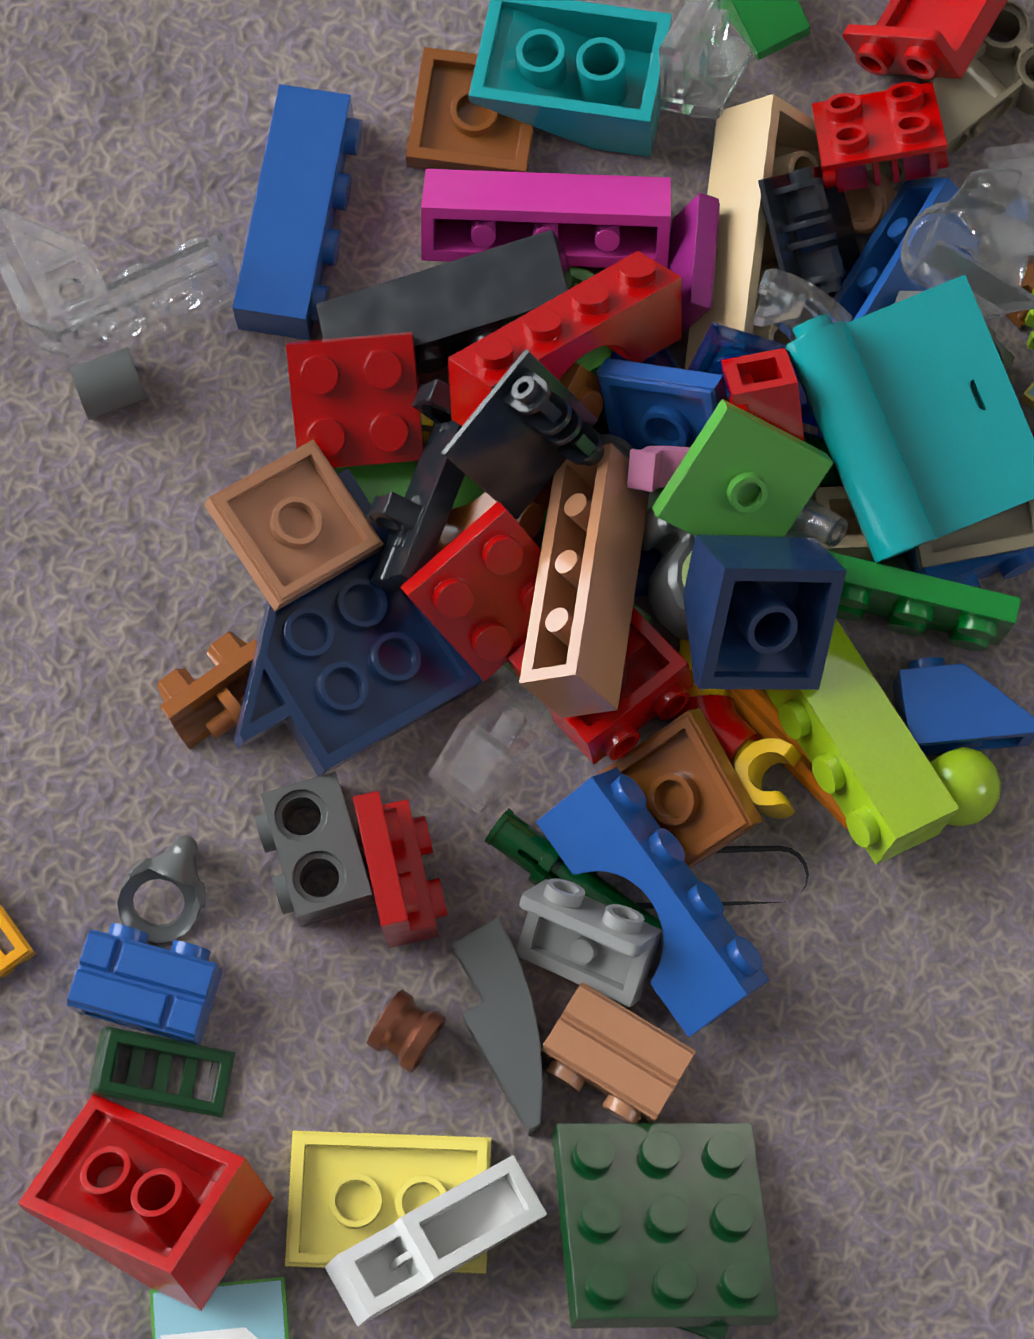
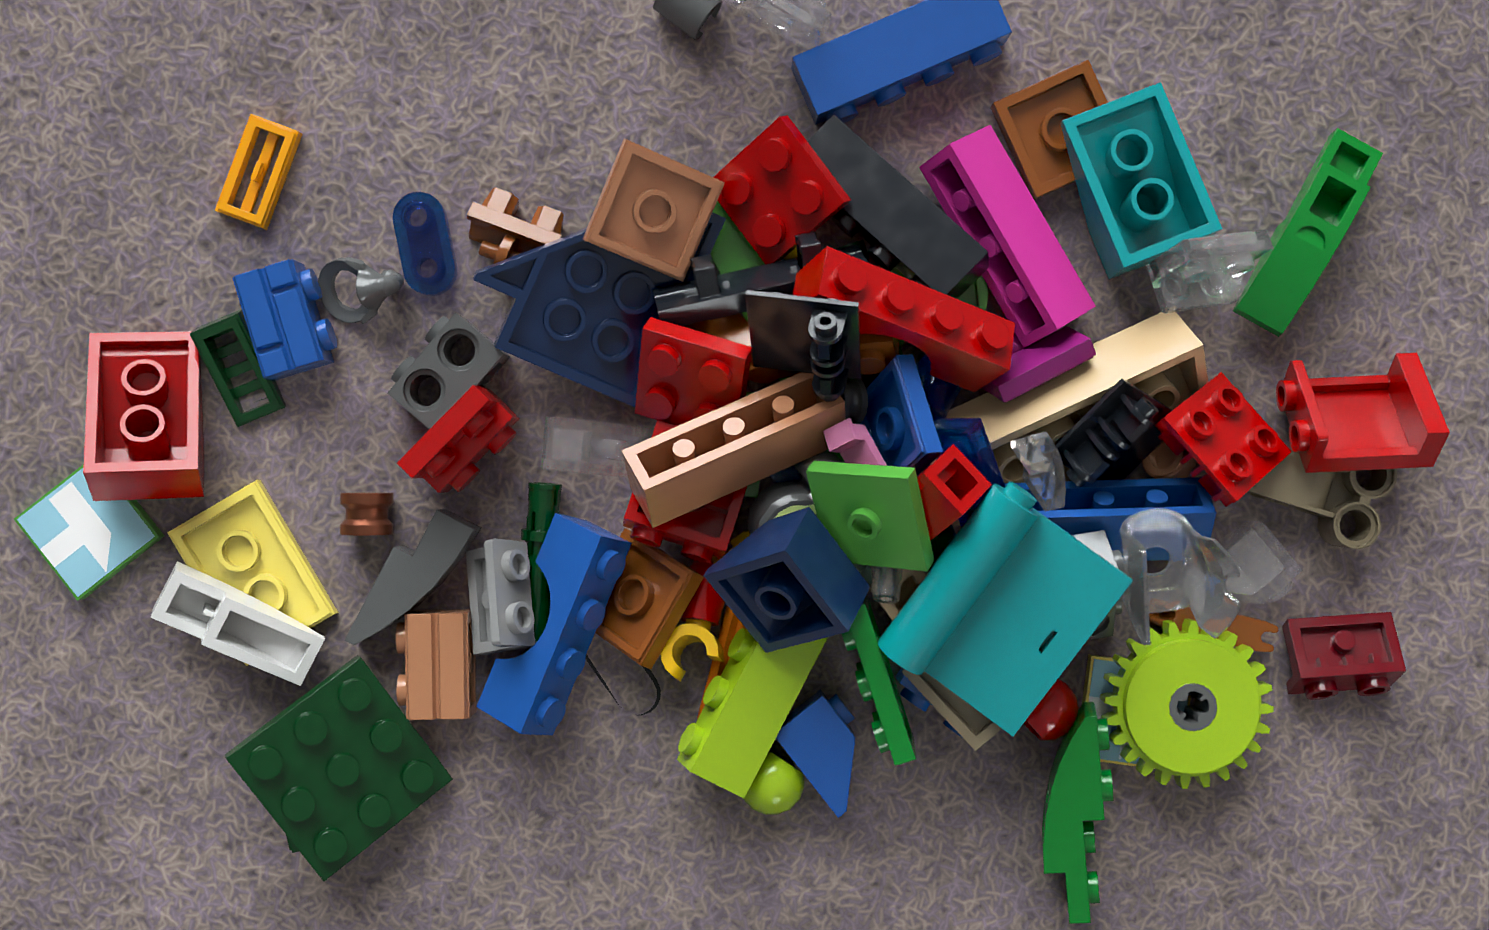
camera: 60 degrees right, 15 degrees up
(163, 795) = (425, 243): none -> clear blue plate

